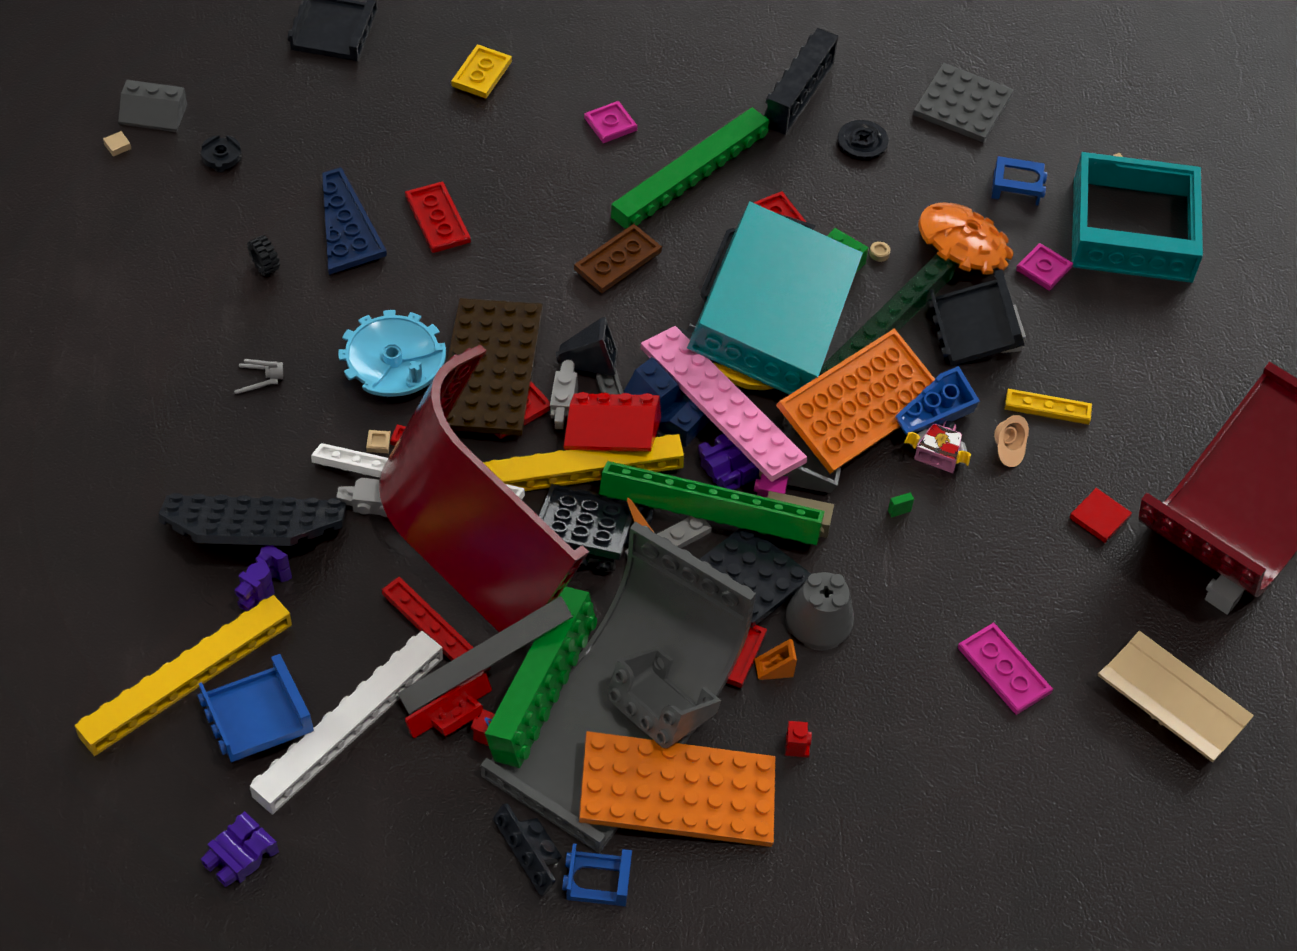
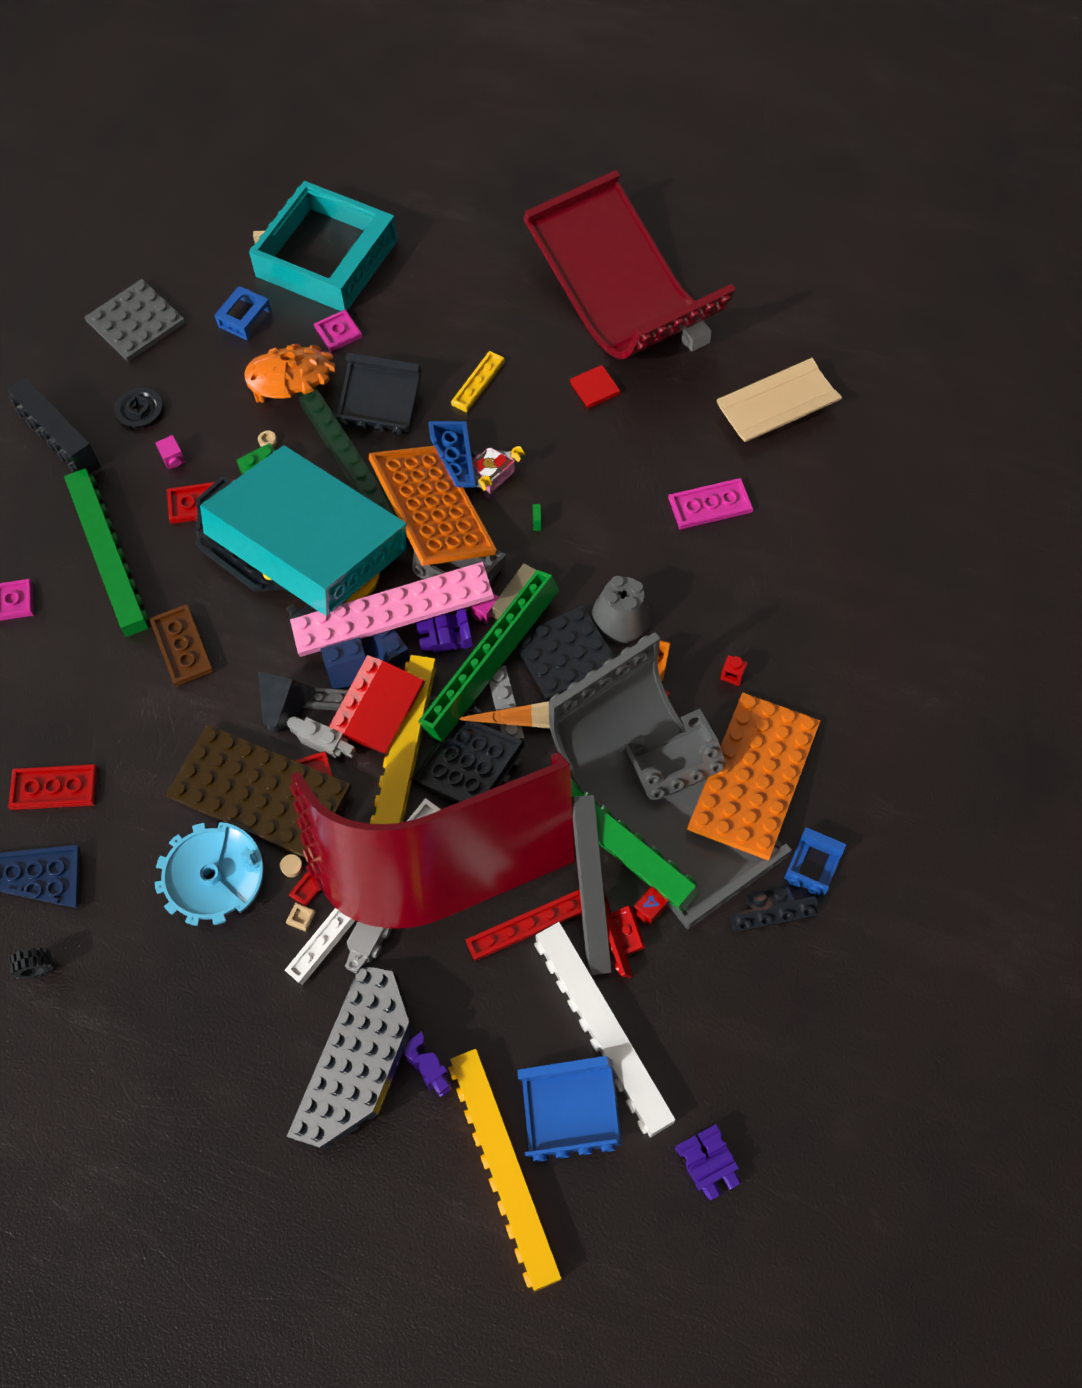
camera: 65 degrees left, 10 degrees up
(273, 370) = (176, 993): light grey plant -> none
(823, 179) = (170, 452): none -> dark pink brick
(1011, 439) = (503, 417): light nougat piece -> none

